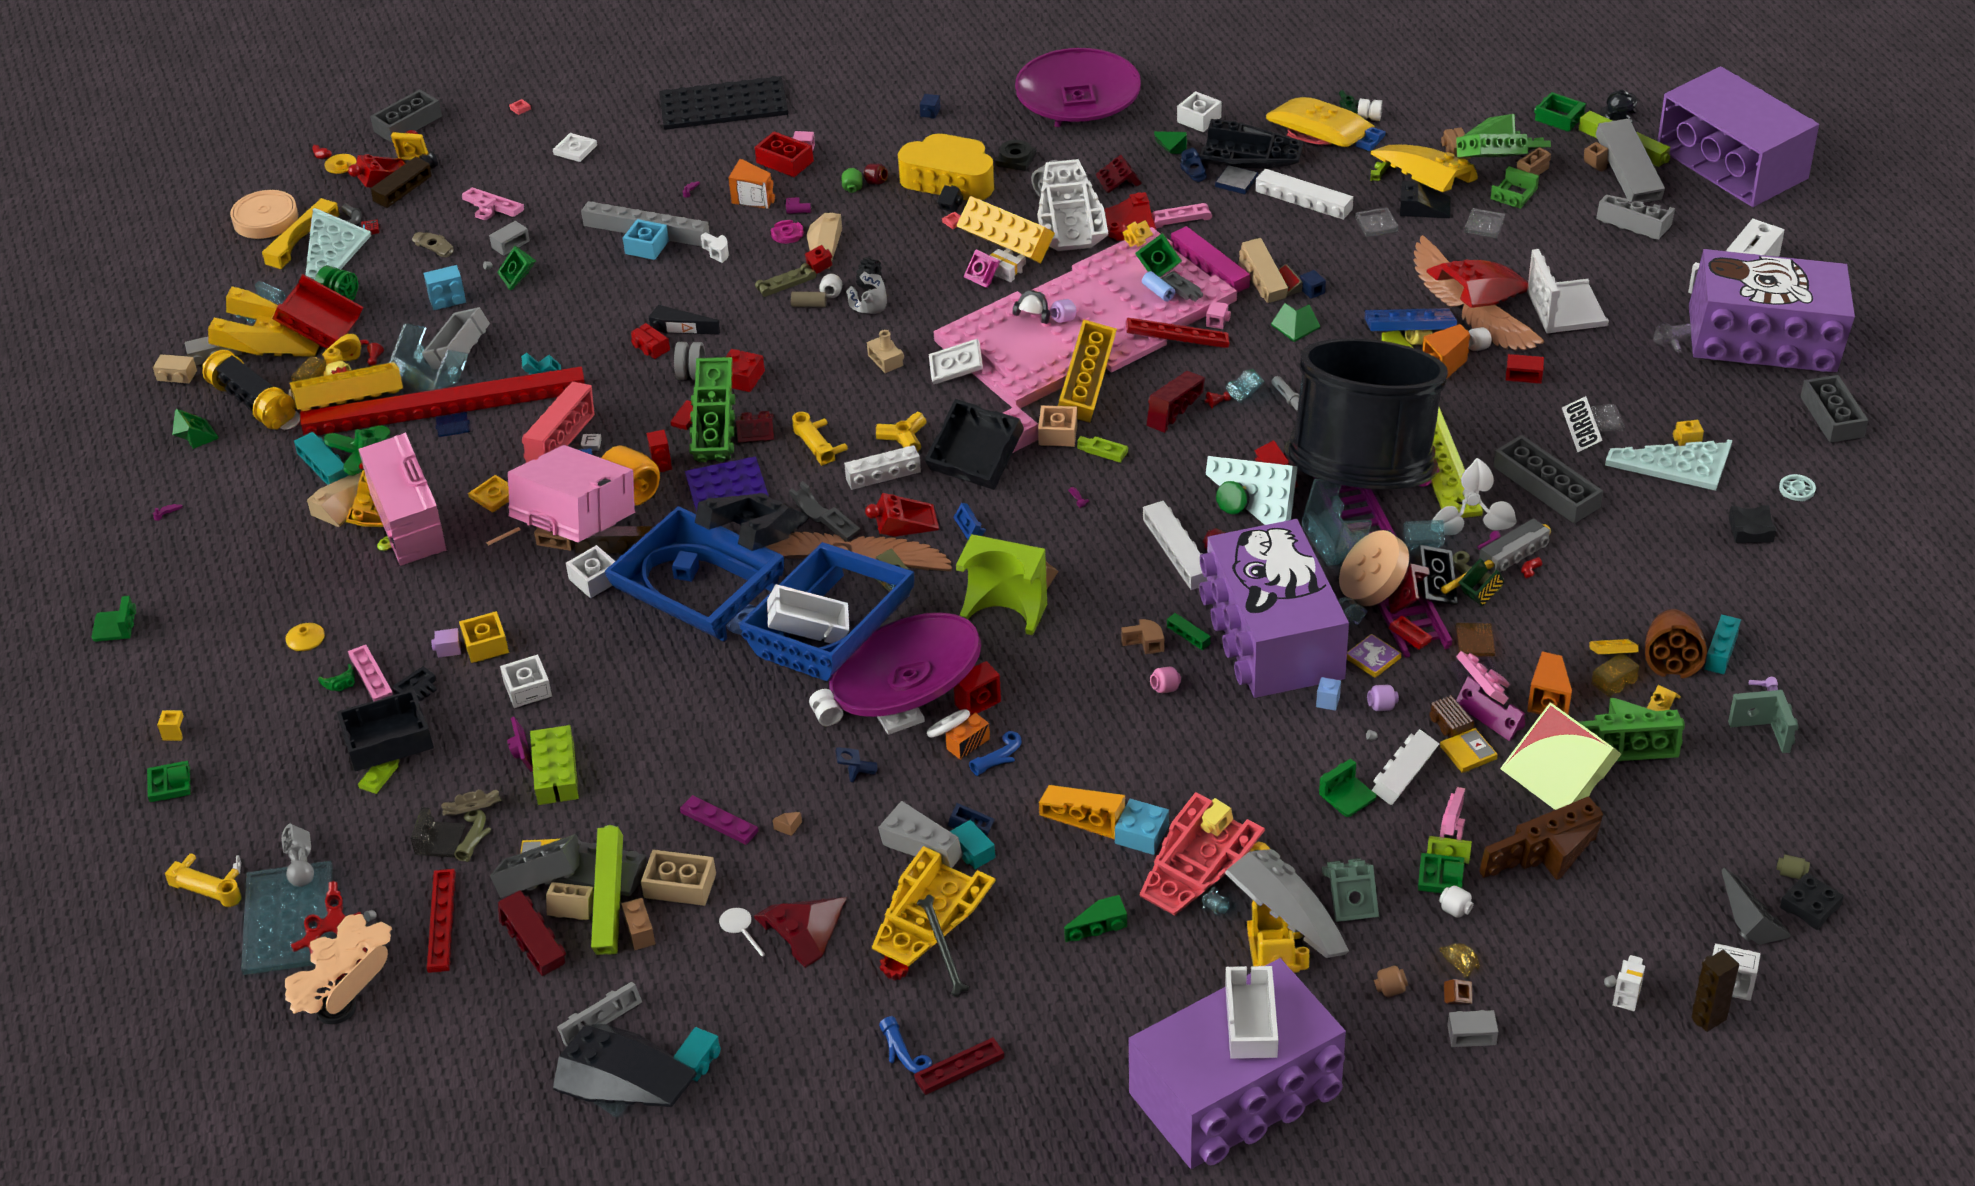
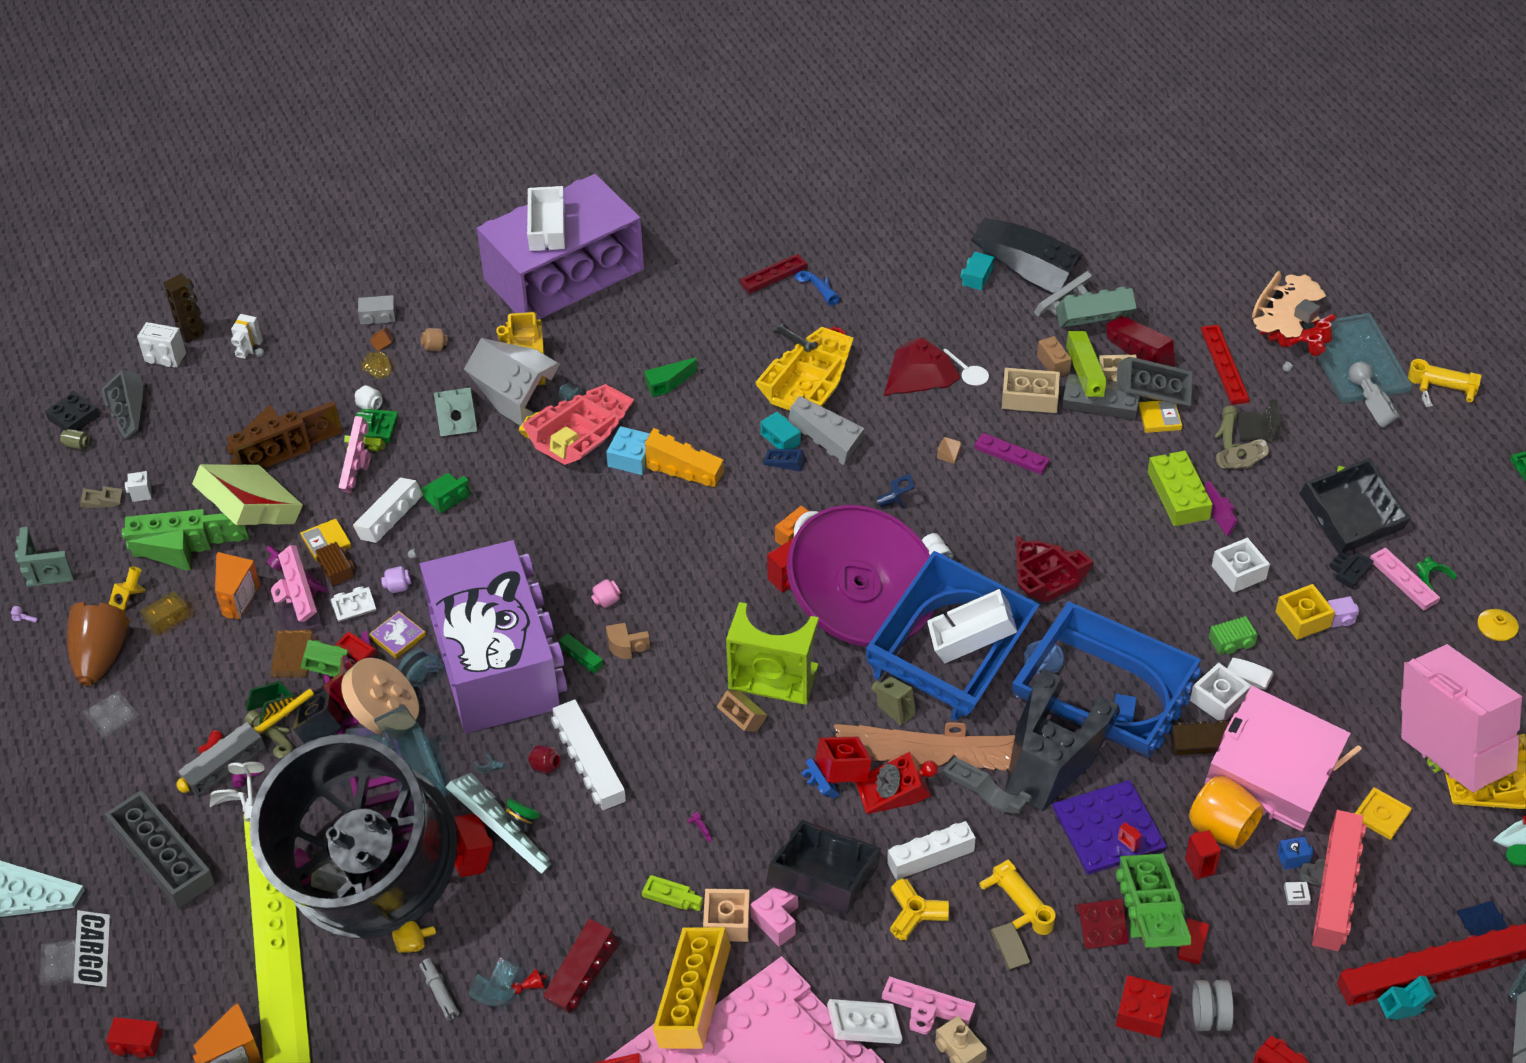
camera: 175 degrees right, 5 degrees up
(323, 939) = (1306, 311): none -> dark grey piece
(559, 625) = (1233, 635): none -> bright green brick
(560, 593) = (1251, 673): none -> white slope
(569, 972) = (1095, 307): none -> sand green brick
(715, 462) = (1129, 836): none -> red plate
(721, 683) = (1048, 570): none -> dark red wedge
(832, 412) = (1010, 945): none -> dark tan slope
(906, 378) = (926, 1004): none -> bright pink plate
(910, 508) = (890, 774): none -> dark grey gear
(947, 522) = (843, 759): none -> red brick
(999, 756) = (761, 519): blue plant -> none
(1425, 682) = (353, 604): none -> white bracket
(1437, 613) = (322, 658): none -> bright green brick
(1613, 646) = (157, 637): yellow tile -> none
(1635, 593) = (111, 715): none -> clear plate
(1693, 804) = (138, 486): none -> white brick
(1722, 644) = (45, 648): teal brick -> none
(1739, 804) = (106, 498): none -> dark tan slope

